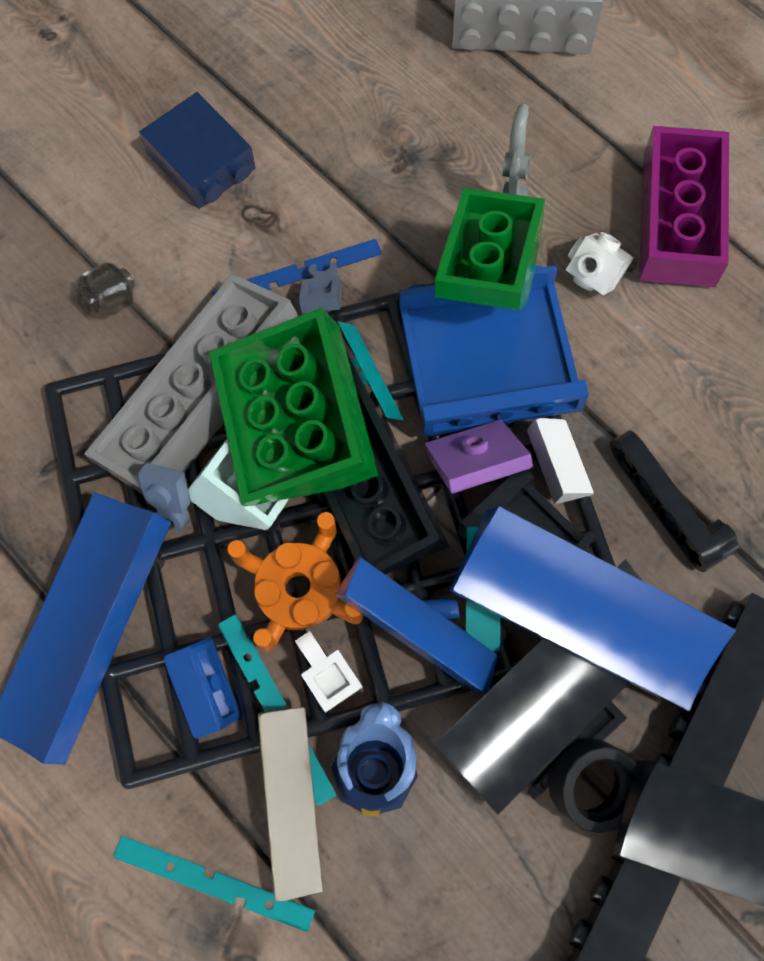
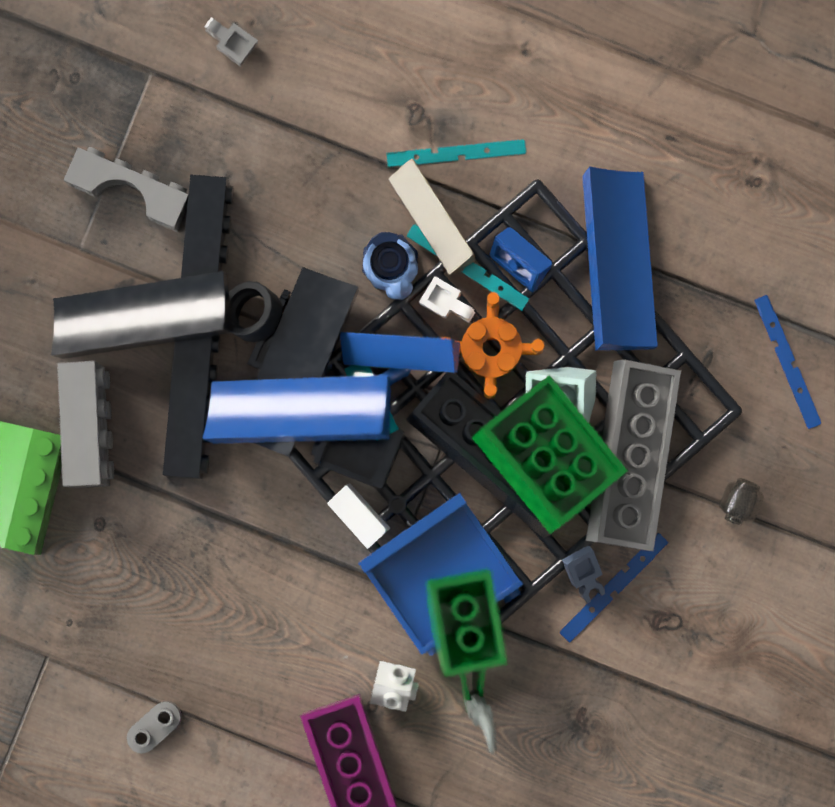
camera: 155 degrees right, 15 degrees up
(167, 492) = (607, 364): sand blue plate -> none
(198, 150) = (738, 649): dark blue brick -> none
(369, 371) = (517, 521): teal piece -> none
(478, 456) = (414, 485): medium lavender plate -> none
(700, 543) = (238, 503): black beam -> none

